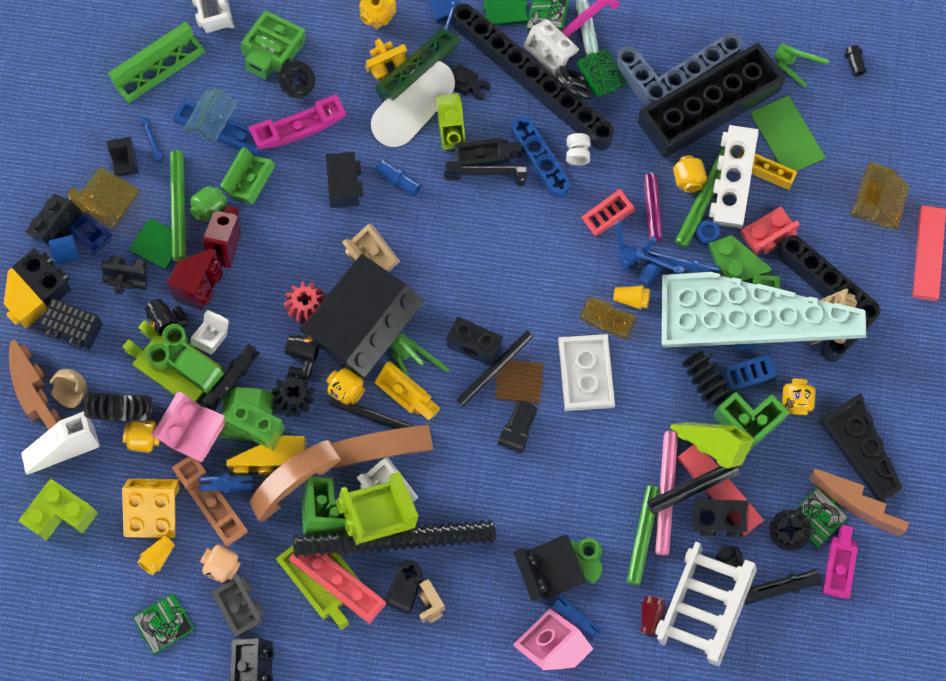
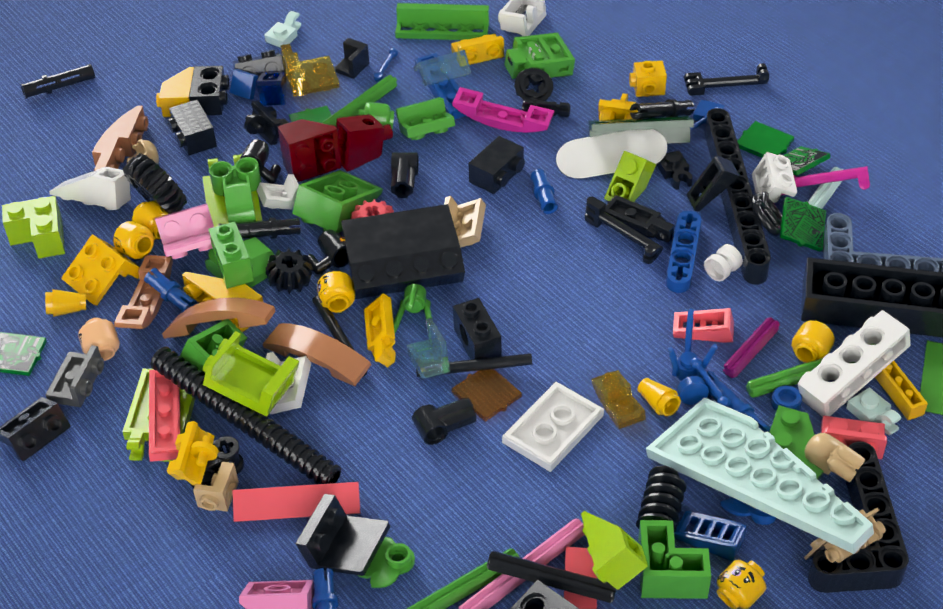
camera: 45 degrees right, 25 degrees down
(33, 169) = (284, 33): none -> light aqua plate
(152, 464) = (133, 240): none -> yellow head
(211, 69) = (481, 48): none -> yellow bracket
(258, 304) = (332, 199): none -> bright green slope
(278, 235) = (404, 169): none -> black piece
(323, 92) = (562, 109): none -> black axle
(403, 595) = (194, 452): none -> yellow hips
(420, 29) = (669, 108): none -> black pin
(462, 385) = (431, 355): none -> clear light blue panel
(487, 567) = (292, 501): none -> coral tile
(522, 71) = (712, 182): none -> black slope
(762, 199) = (873, 408): none -> light aqua plate
(778, 263) = (833, 456): none -> tan piece

